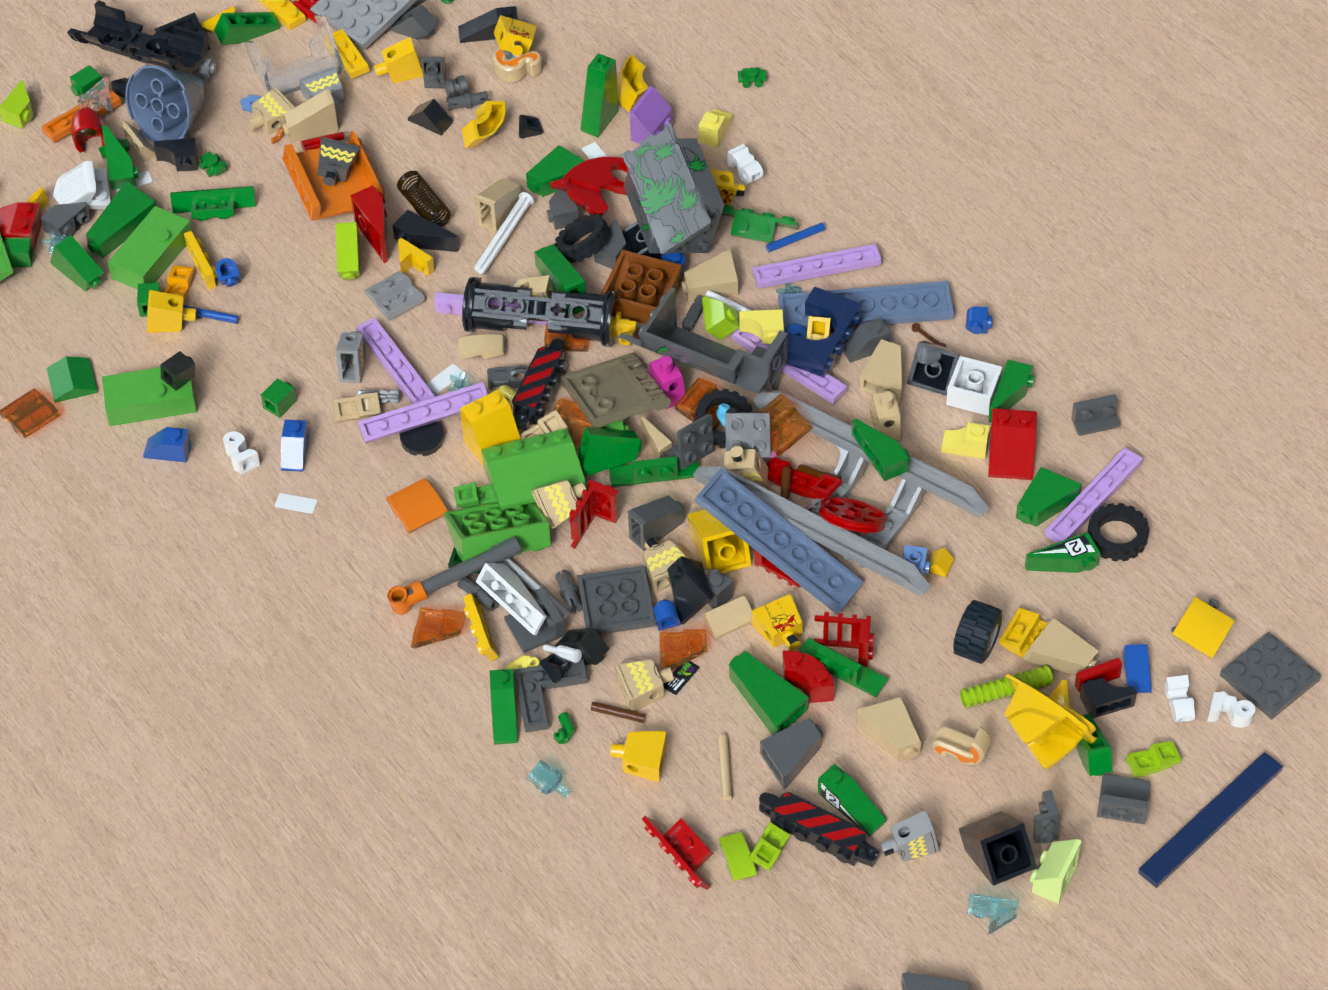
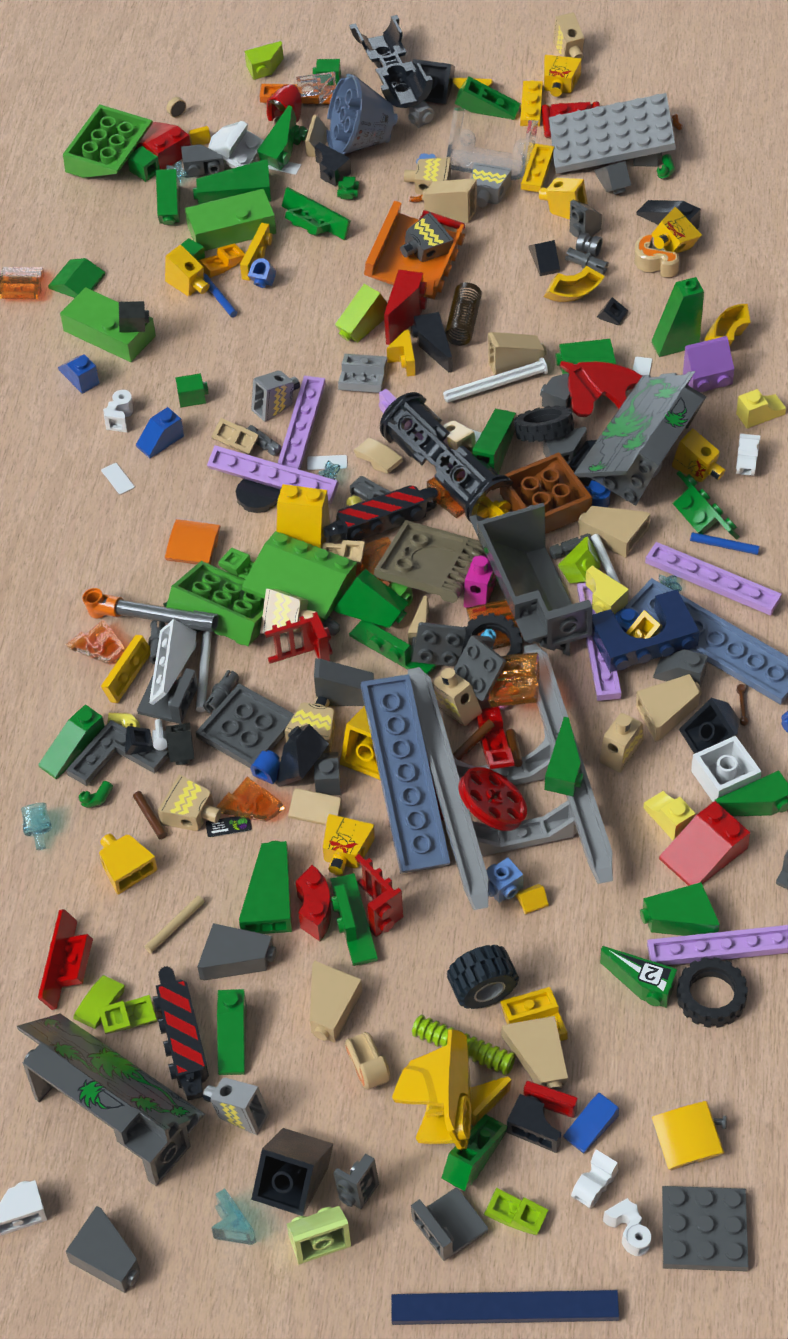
camera: 45 degrees right, 0 degrees up
(875, 886) = (139, 1108): none -> panel

